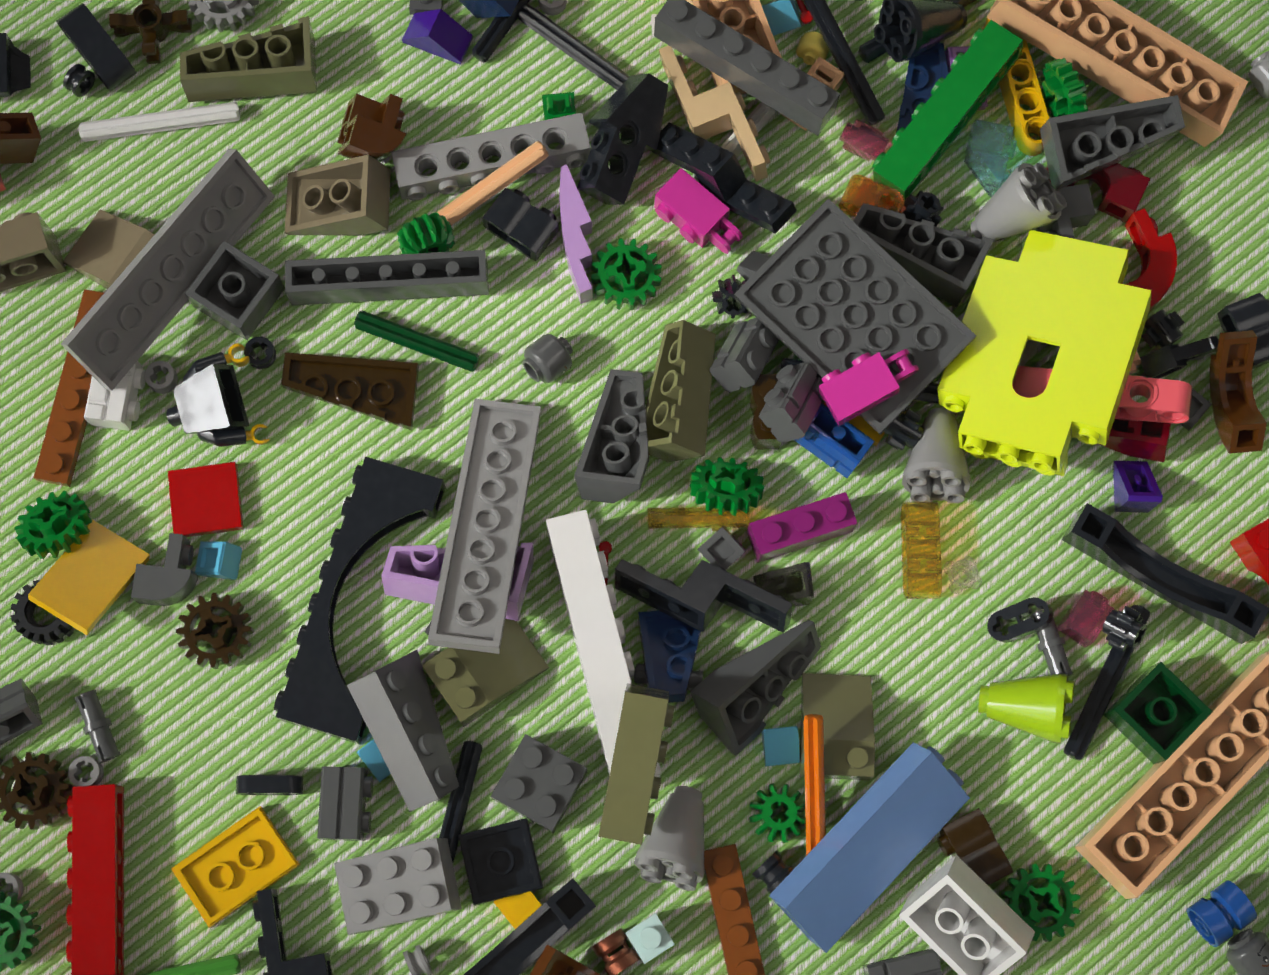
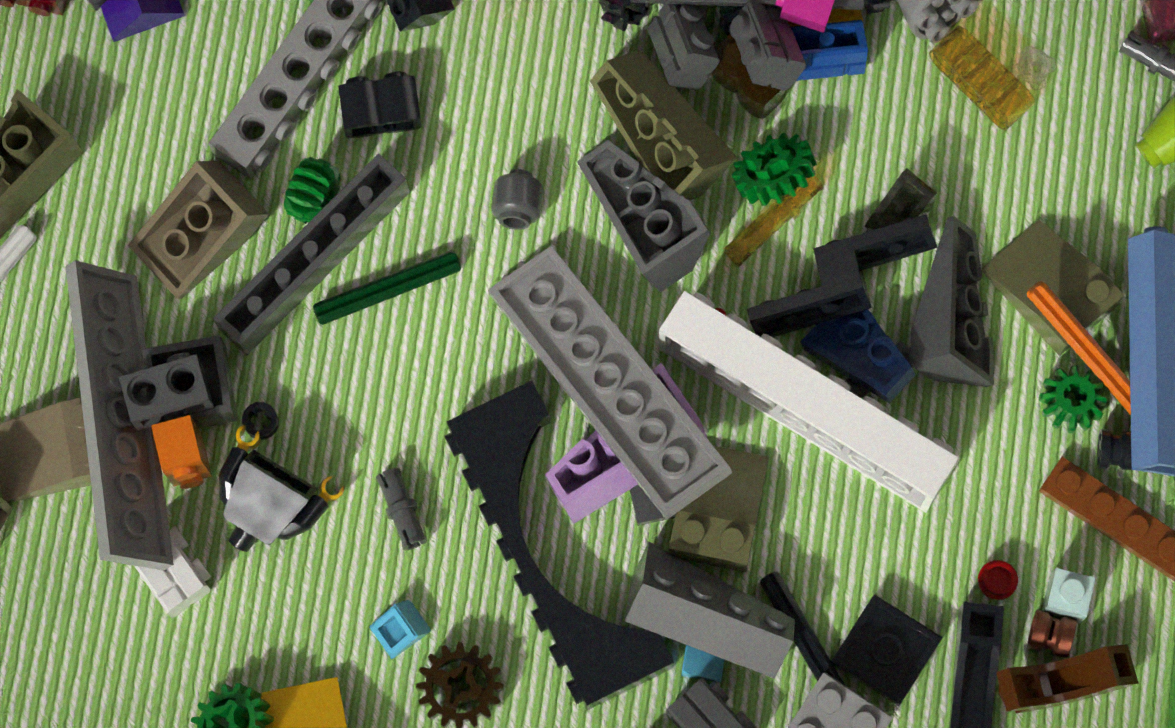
camera: 35 degrees left, 0 degrees up
(67, 420) = (130, 603): dark orange plate -> none
(169, 583) = (381, 684): dark grey brick -> none
(171, 378) = (204, 514): light grey bush -> none
(188, 326) = (181, 452): none -> orange brick
(204, 284) = (168, 401): none -> dark grey brick
(205, 499) = (338, 588): red tile -> none
(289, 486) = (401, 509): none -> dark grey pin
(365, 386) = (378, 367): dark brown wing -> none
(371, 127) = (169, 138): reddish brown brick -> none
(494, 182) = (325, 89): light nougat axle -> none
(518, 907) = (937, 674): yellow tile -> none
(539, 783) = (857, 556): dark grey brick -> none
(575, 225) = (426, 63): lavender slope -> none
(615, 278) = (522, 55): green gear -> none
(616, 884) = (997, 580): none -> red plate
(634, 764) = (933, 455): olive wedge -> none
(676, 842) = (1015, 498): light grey cone -> none
(722, 548) = (818, 225): dark grey plate -> none
(781, 746) = (1021, 343): medium azure slope -> none
(801, 527) = (867, 147): magenta brick -> none
(1023, 627) = (1107, 58): black beam -> none

